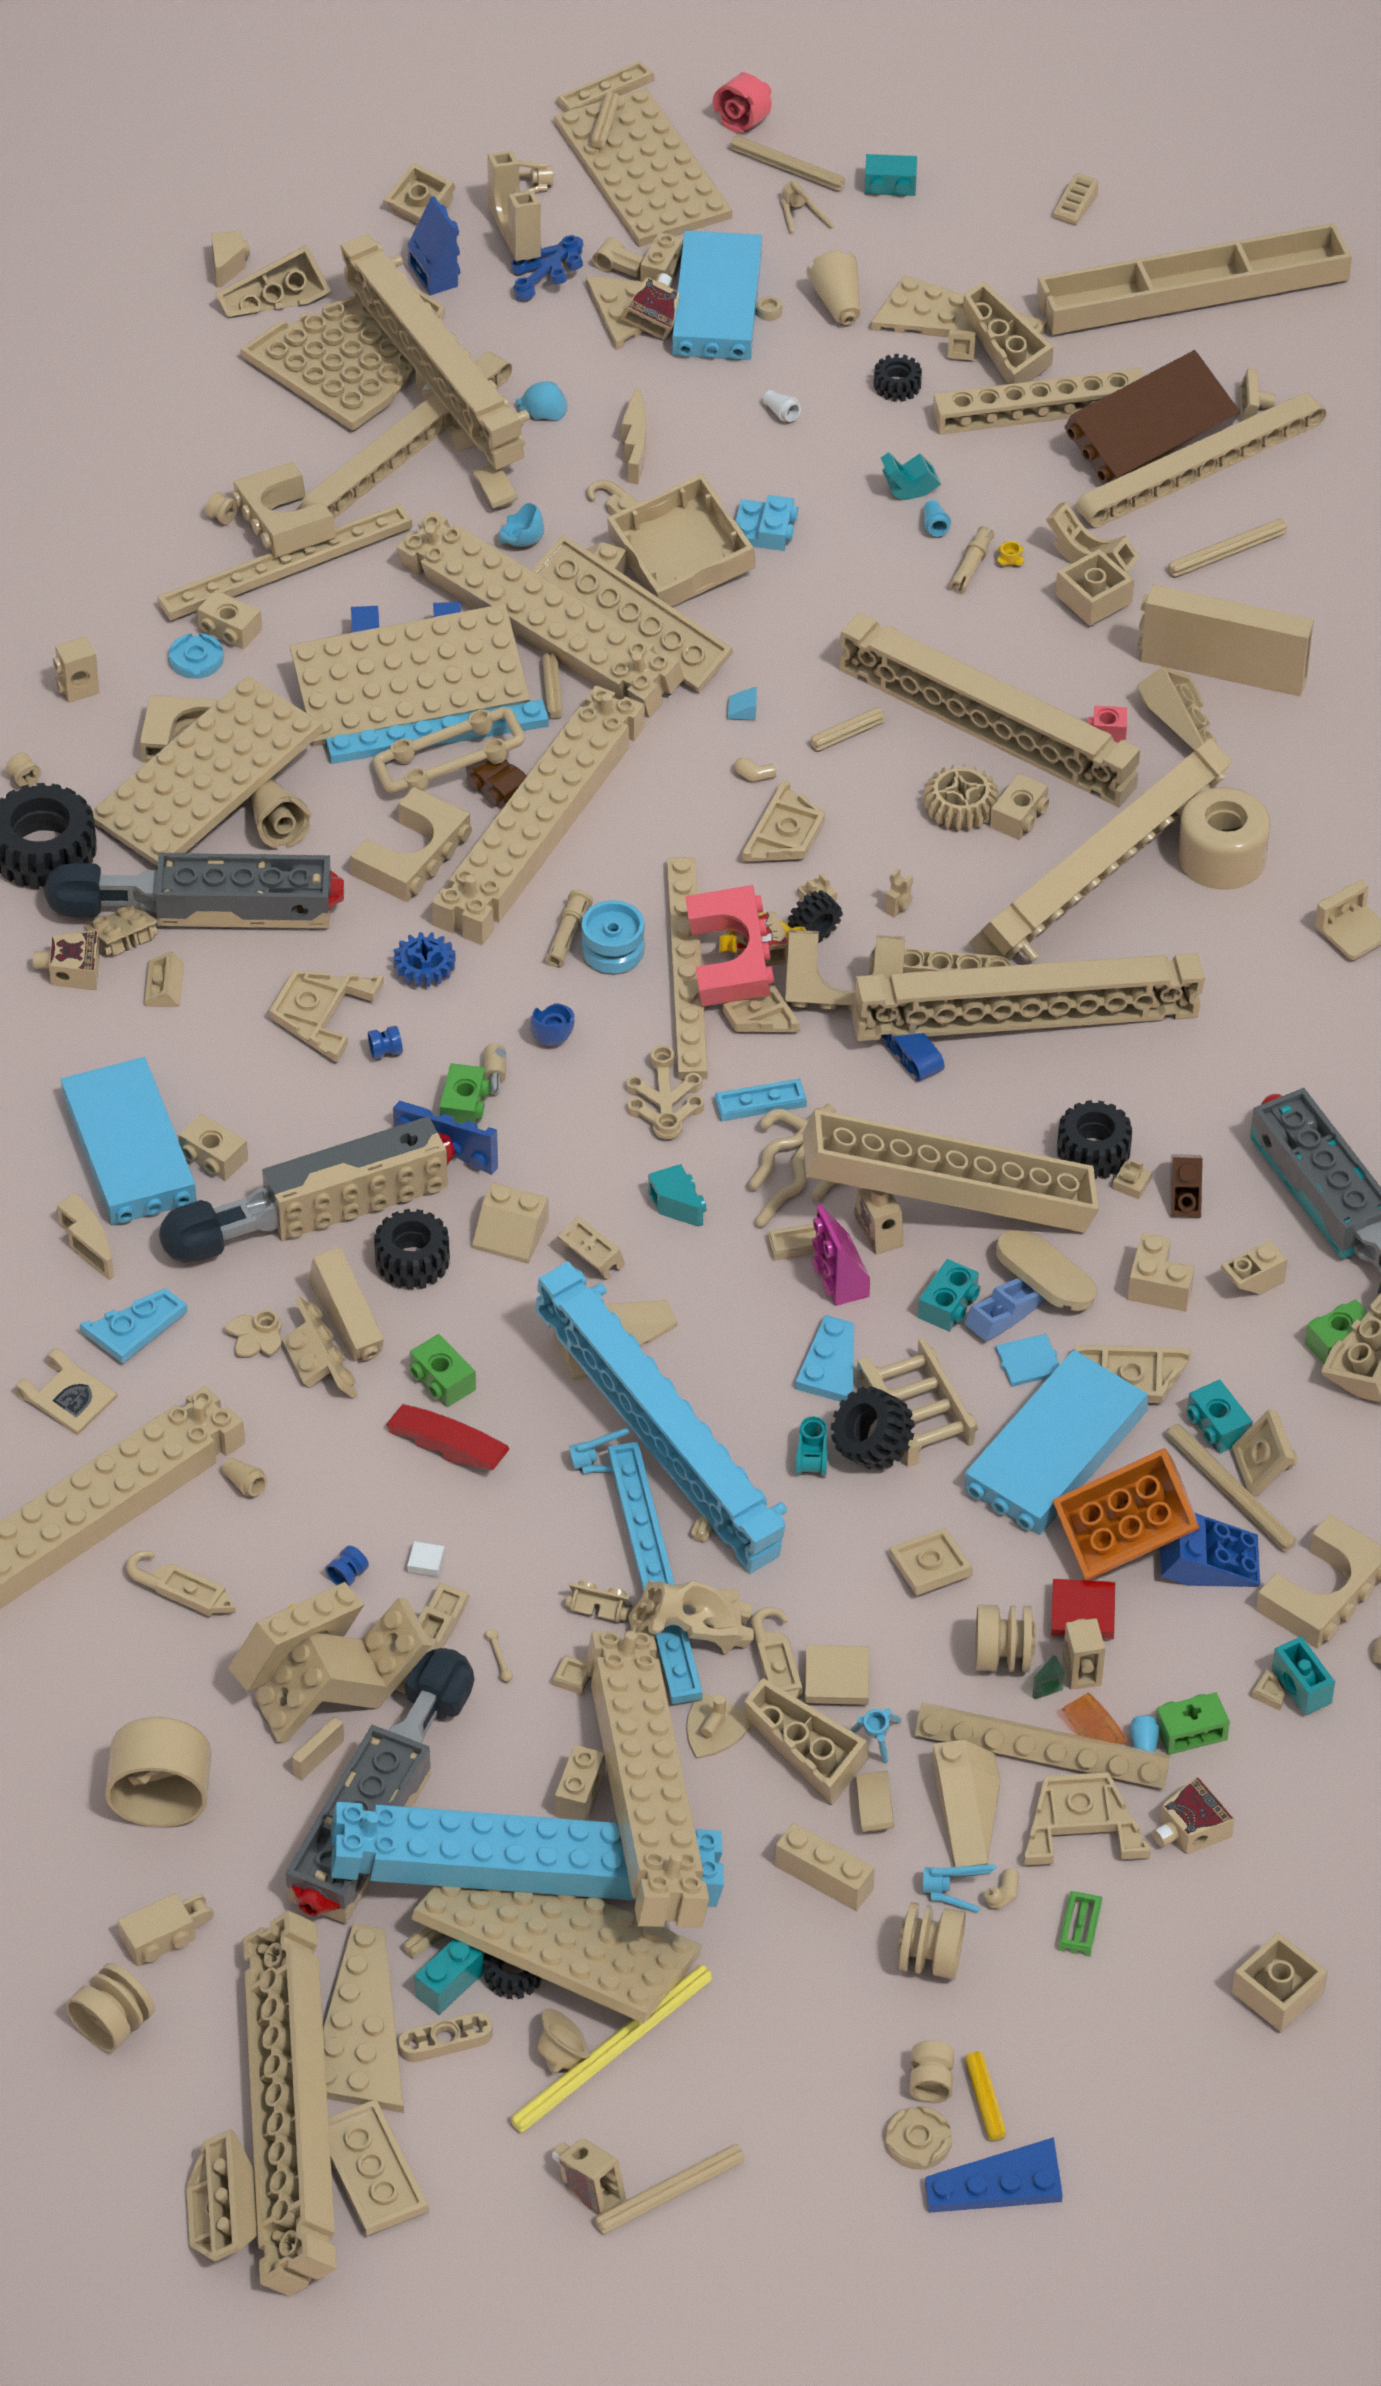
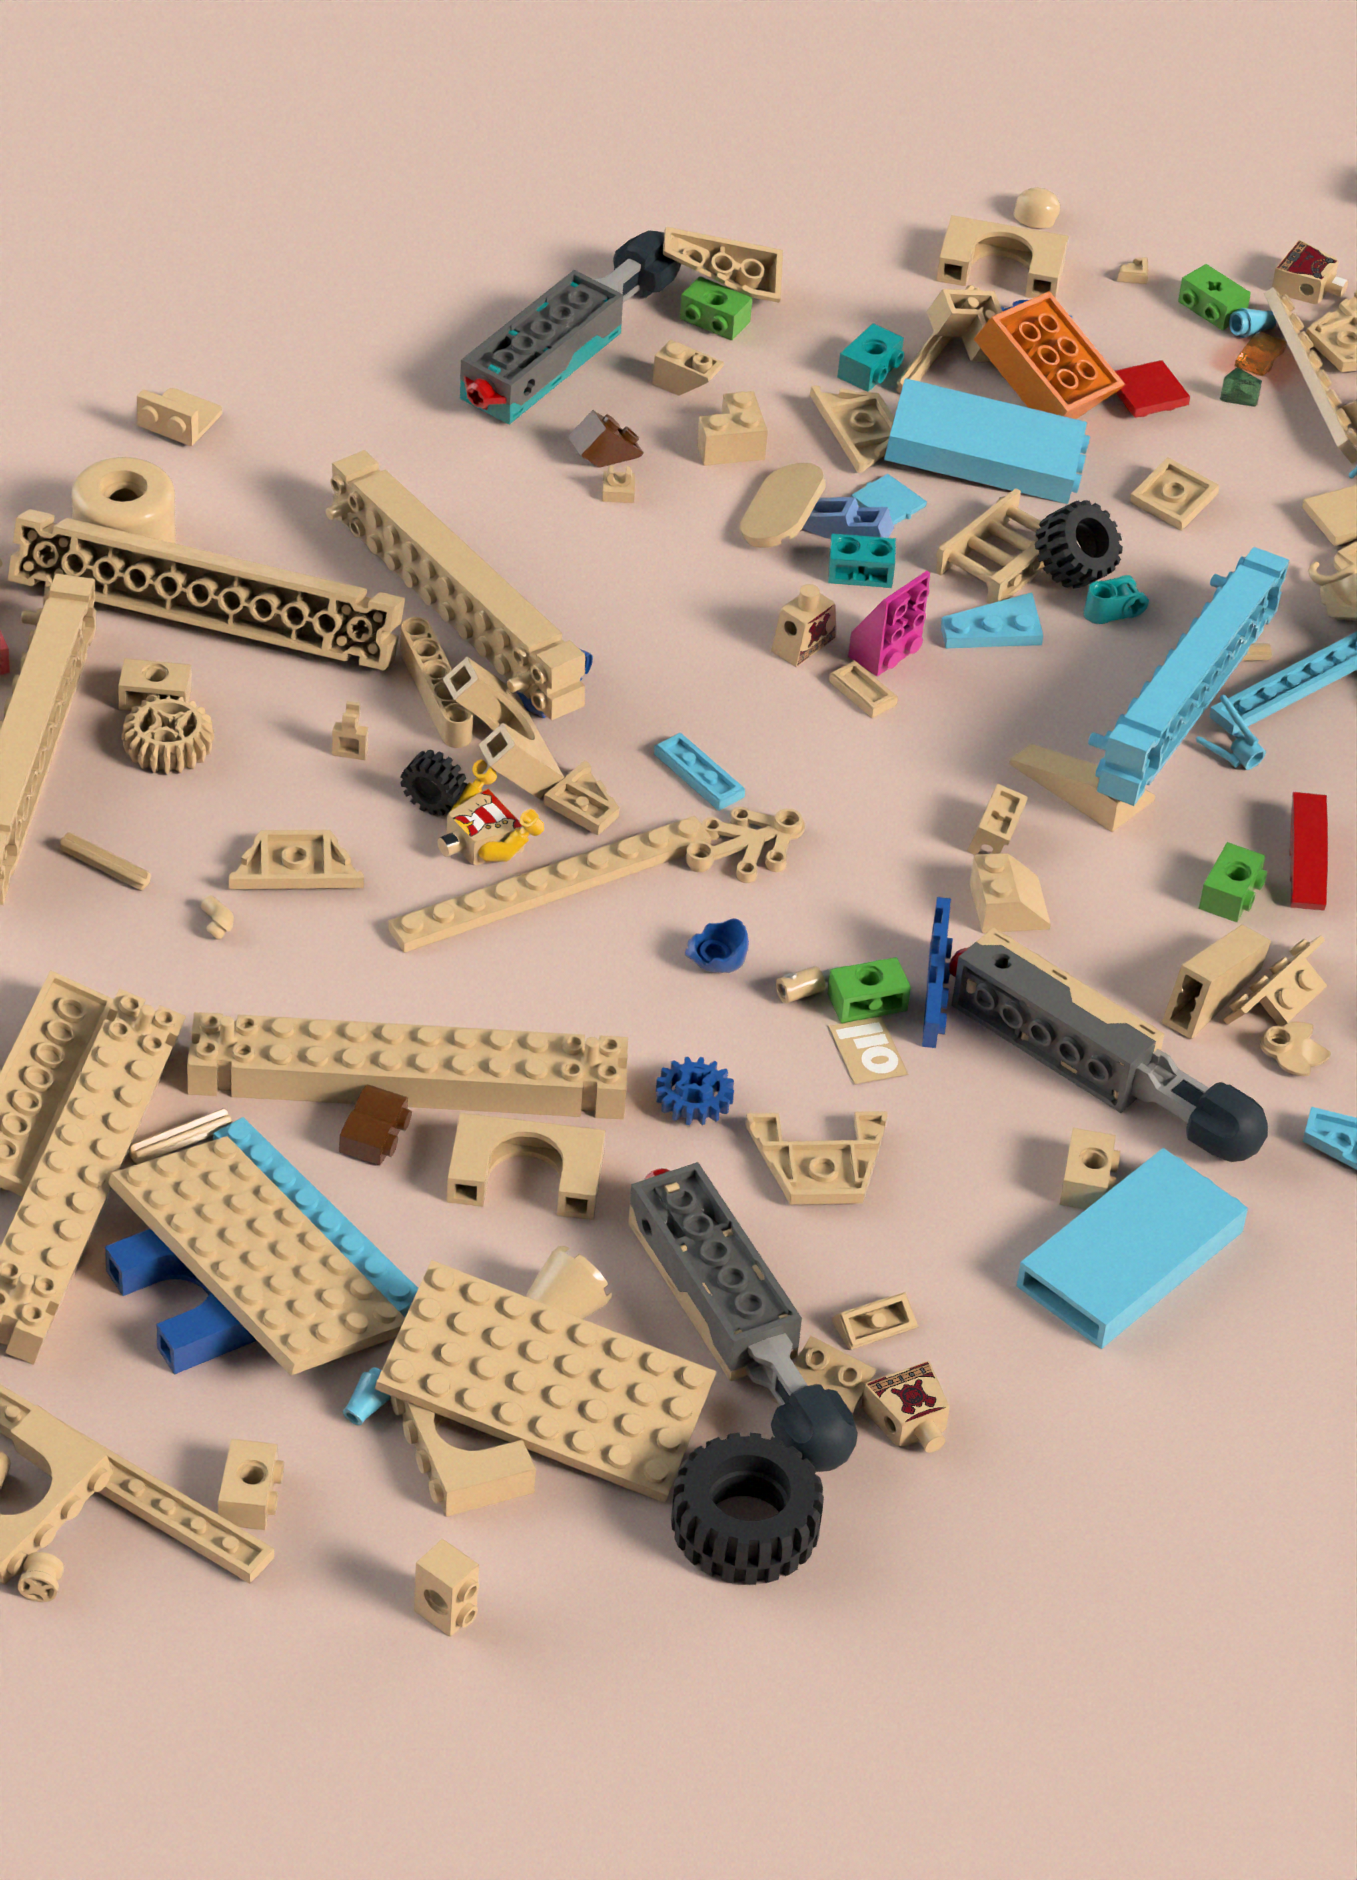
camera: 120 degrees left, 5 degrees down
(23, 769) = (638, 1590): tan wheel -> none
(86, 1233) = (1283, 1229): tan slope -> none
(196, 655) = (321, 1506): medium azure tile -> none
(385, 1042) = (836, 1079): blue wheel -> none
(408, 1231) = (1107, 950): black tyre -> none
(413, 1085) = (868, 1050): none -> sticker
(479, 721) = (375, 1226): tan bar -> none
(571, 920) = (547, 991): tan pin -> none
(613, 936) = (565, 935): medium azure wheel -> none
(676, 1196) = (878, 785): teal slope -> none
(743, 705) = (116, 956): medium azure slope -> none
(747, 974) = (557, 794): coral arch -> none
(797, 1163) = (741, 718): tan plant -> none
(817, 884) = (376, 813): tan tile -> none
(949, 1171) = (757, 548): tan brick -> none
(1004, 1638) = (1234, 409): tan wheel -> none
(1083, 1653) = (1209, 359): tan brick -> none
(1097, 1122) = (597, 509): black tyre -> none
(1227, 1493) = (964, 315): none -> tan brick
(1264, 1452) = (902, 307): tan tile -> none
(1303, 1675) = (1118, 239): teal brick -> none

